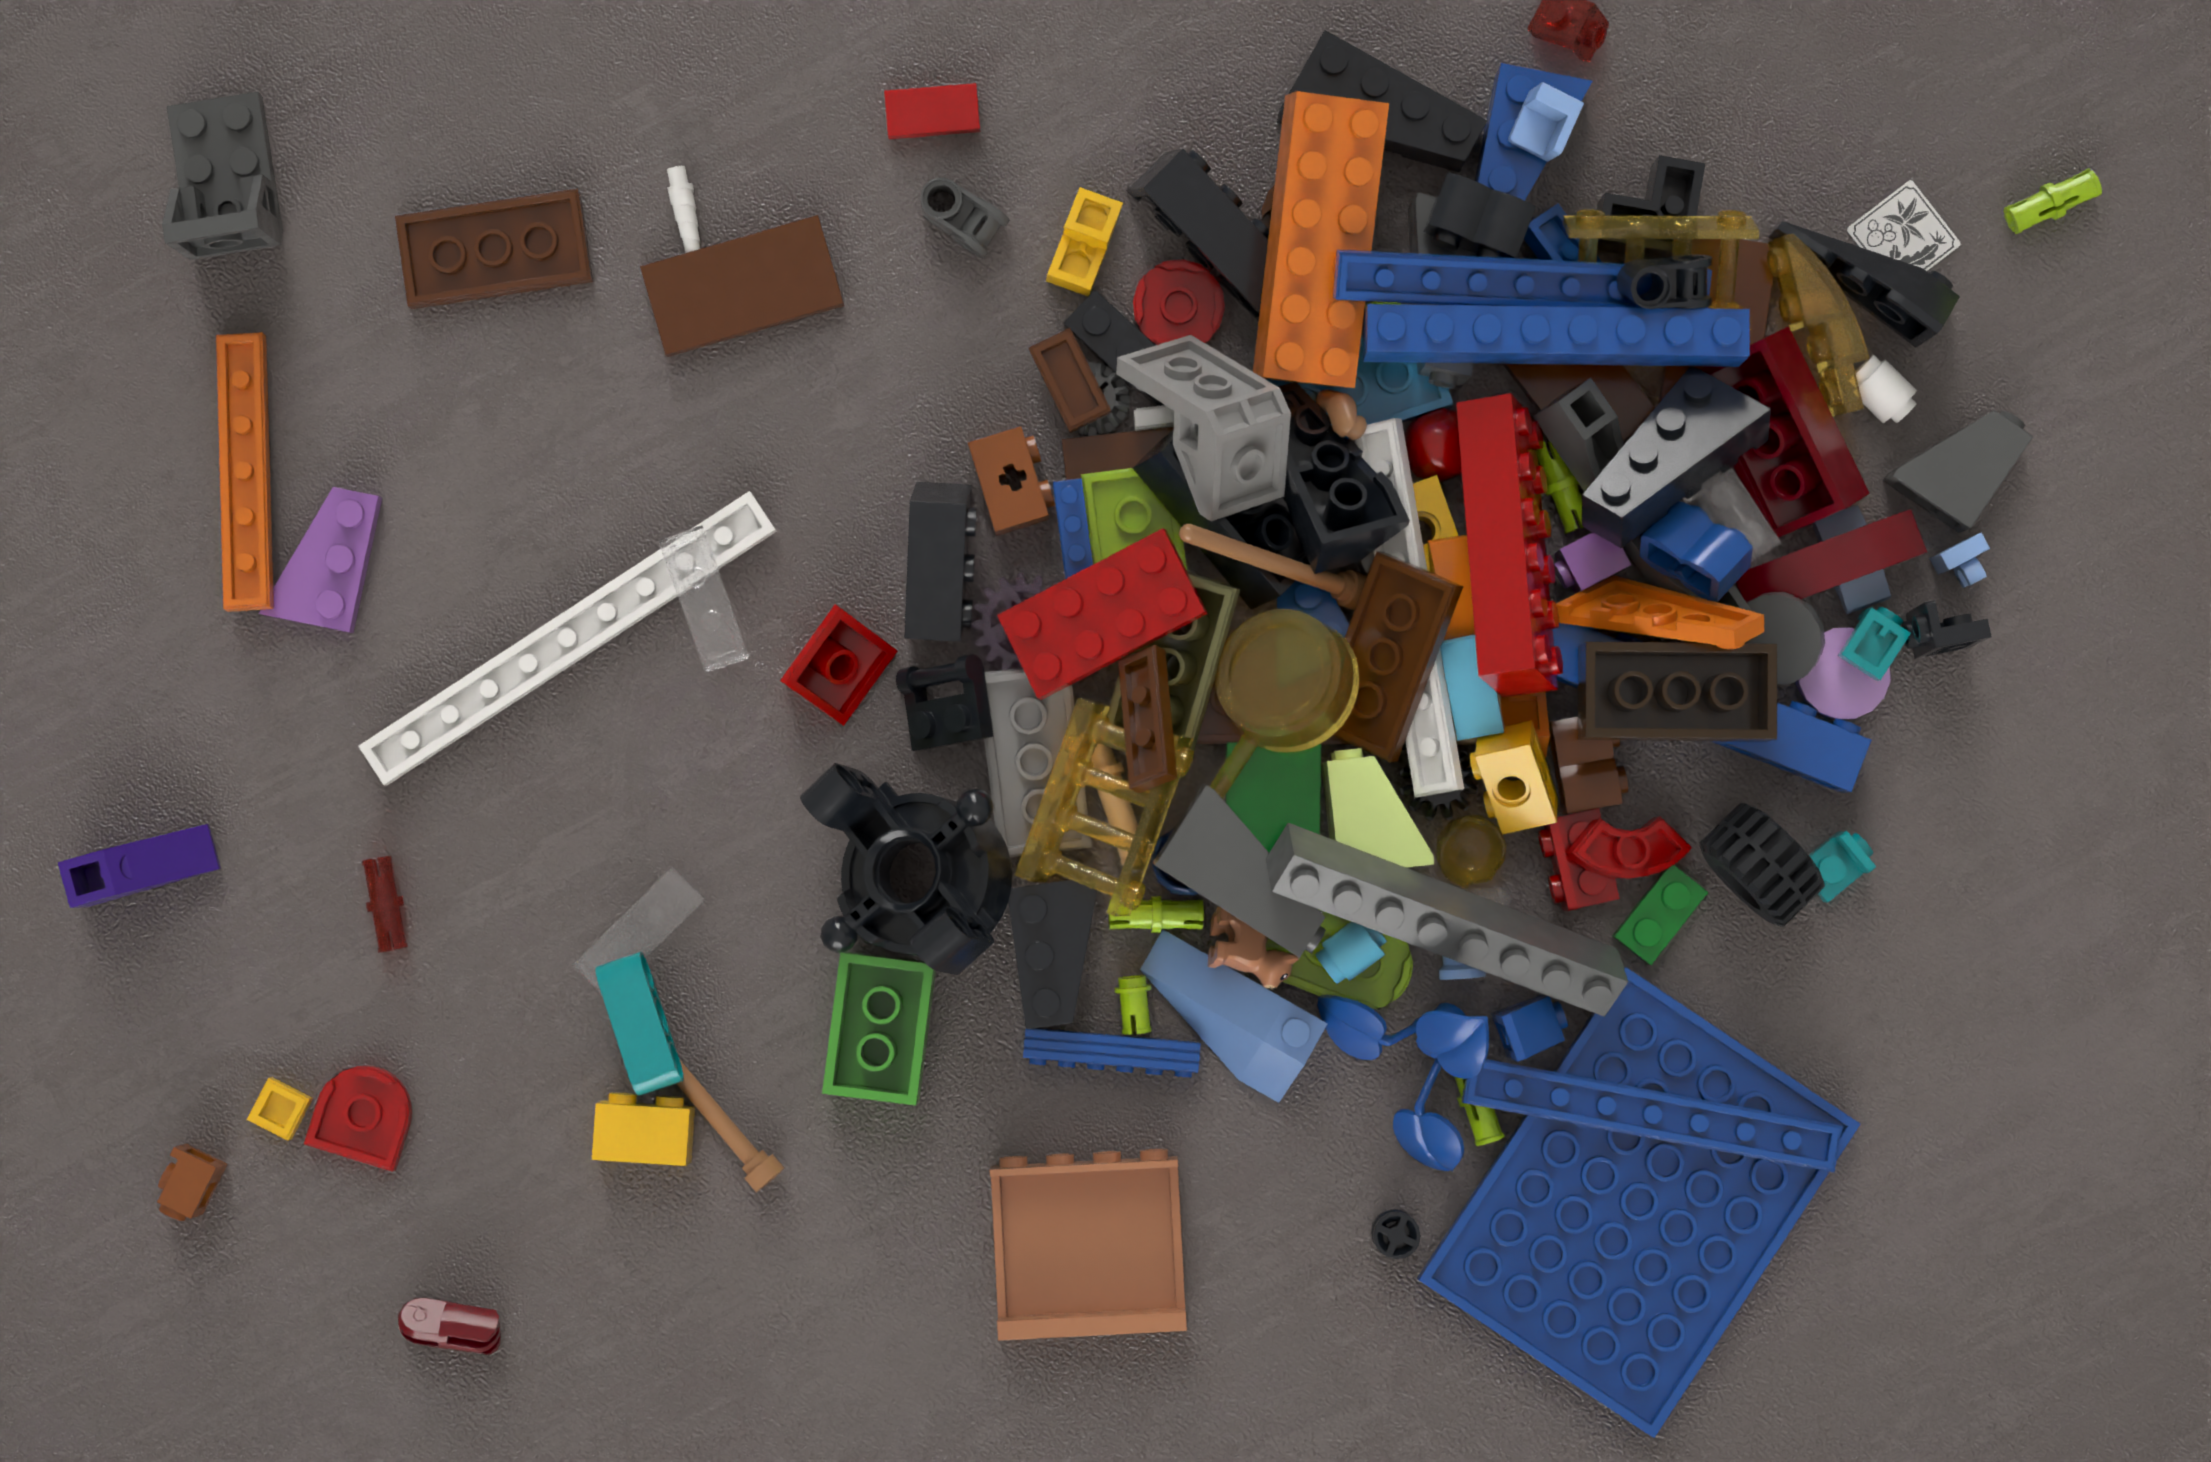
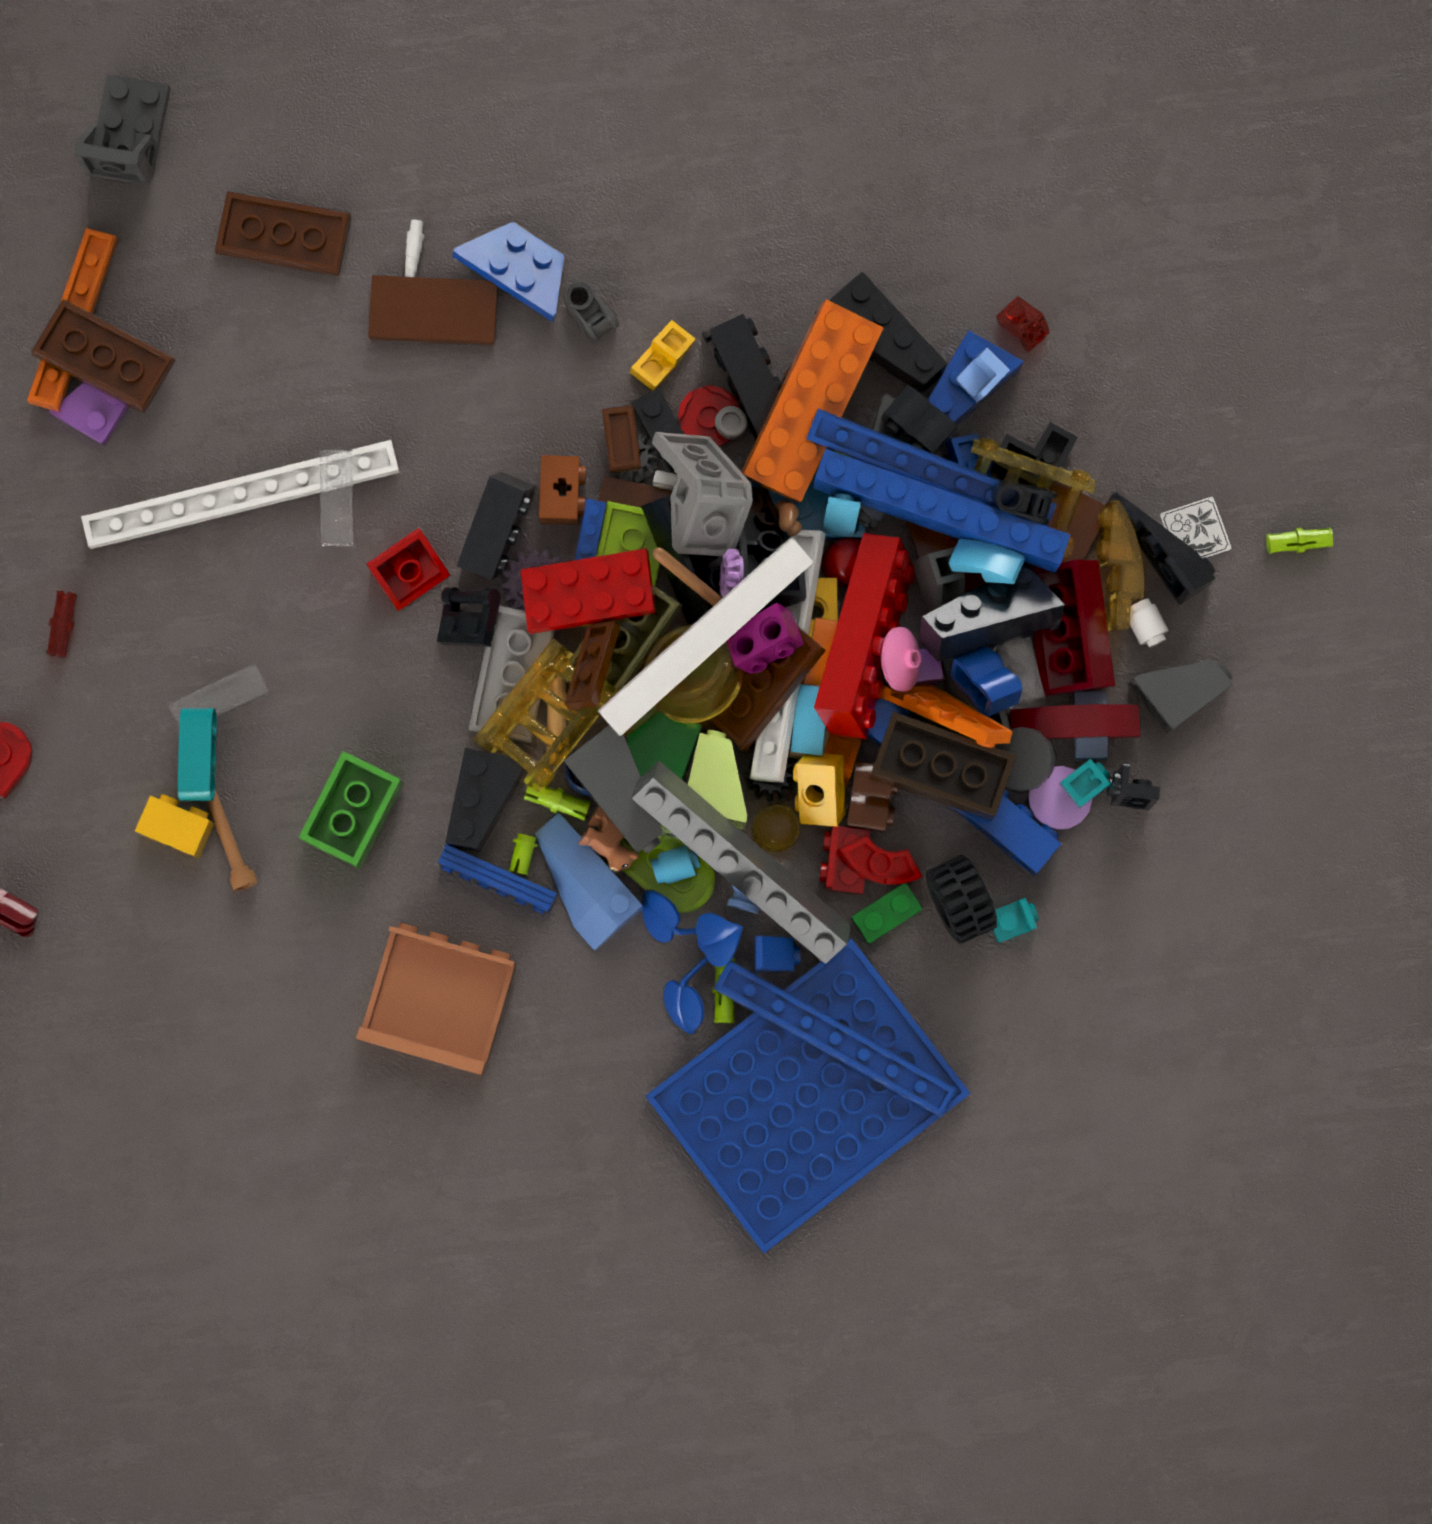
camera: 15 degrees right, 5 degrees down
(307, 510) = (103, 356): none -> reddish brown tile
(838, 183) = (517, 265): none -> wing
(932, 111) = (594, 240): red tile -> none
(971, 867) = (446, 718): black piece -> none
(1213, 305) = (731, 422): none -> light grey tile
(1292, 626) = (705, 636): none -> white tile
(1294, 524) = (731, 571): none -> lavender gear
(1365, 590) = (761, 633): none -> magenta brick
(1400, 1244) = (638, 1057): black wheel -> none
(1416, 387) = (841, 515): none -> medium azure slope
(1562, 487) = (916, 610): lime pin -> none
(1569, 561) = (900, 659): none -> bright pink dish
(1645, 382) = (992, 561): none -> medium azure slope
(1963, 560) = (1162, 749): light blue tile -> none

